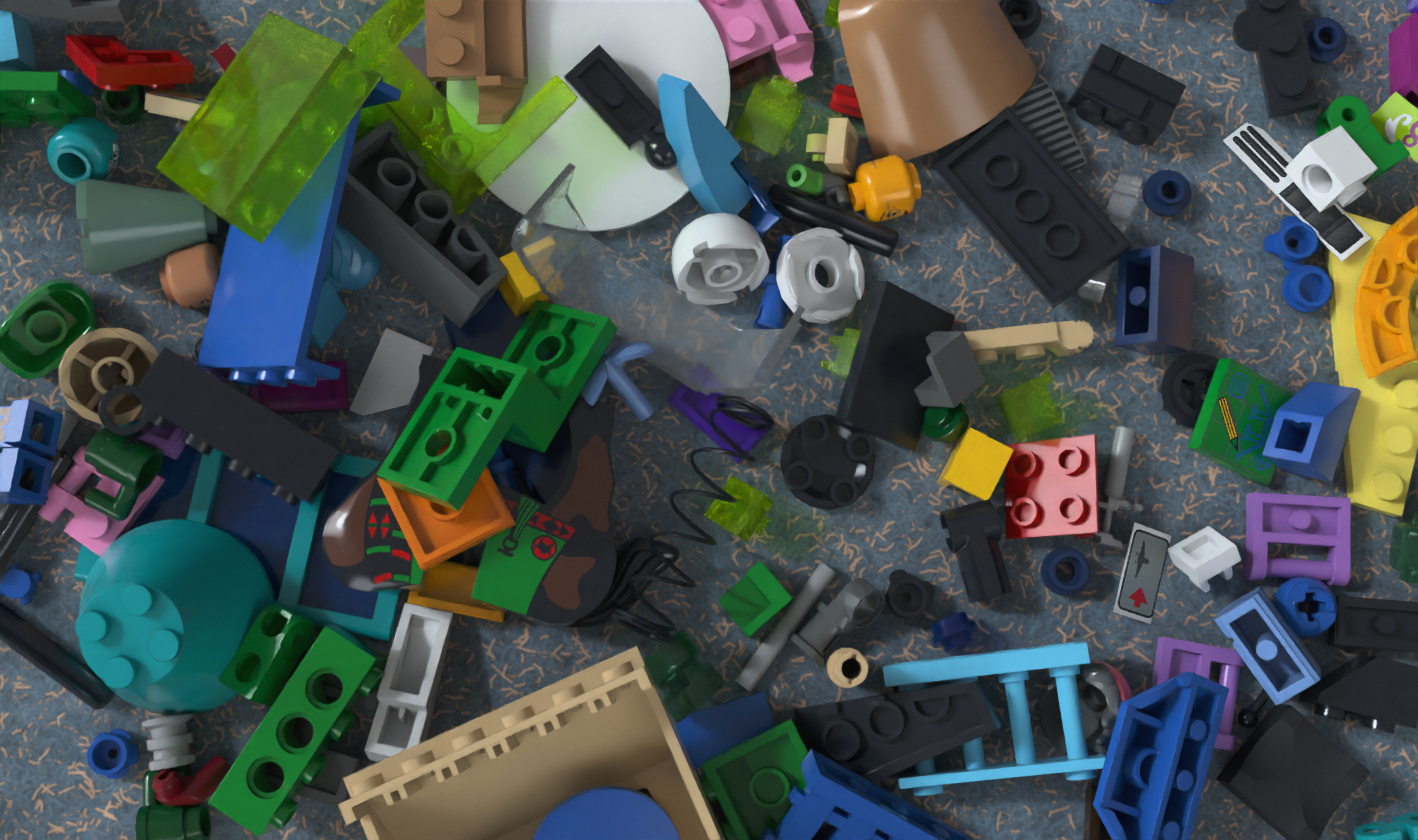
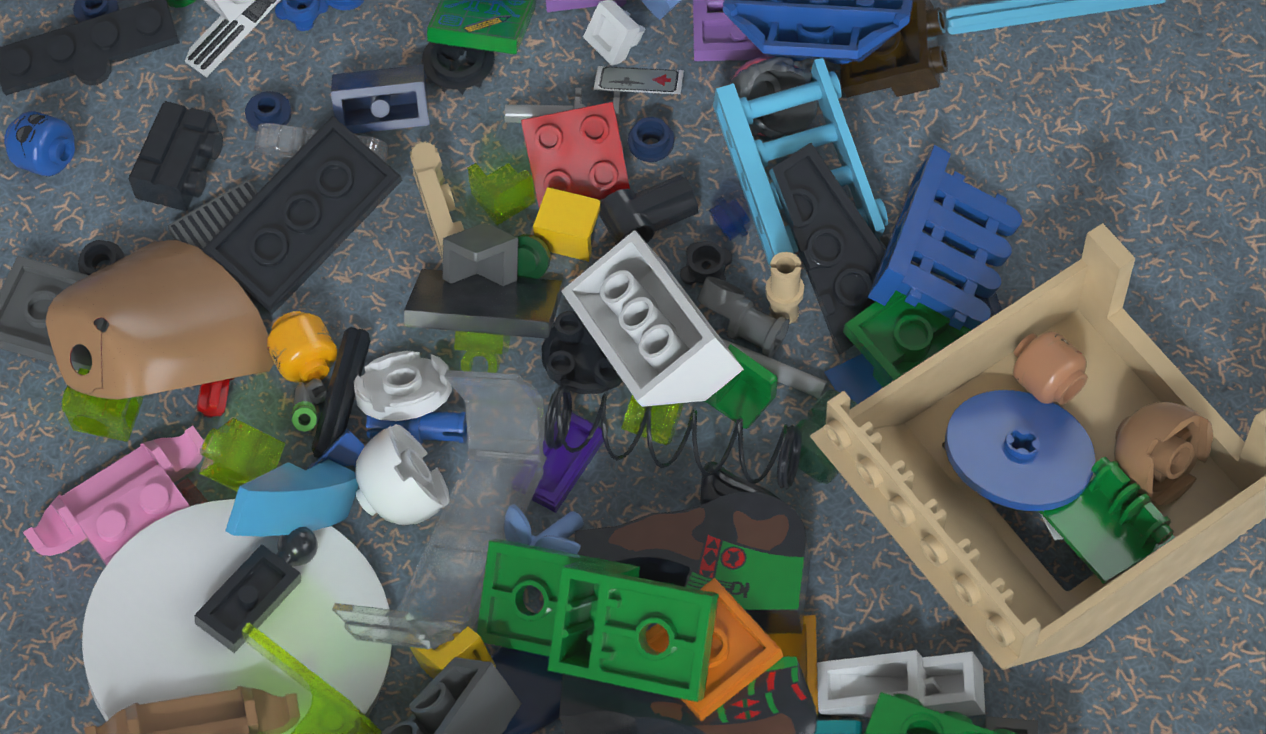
camera: 95 degrees left, 20 degrees down
(822, 520) = (650, 327): none -> white slope
(836, 149) = (265, 396): tan tile -> none

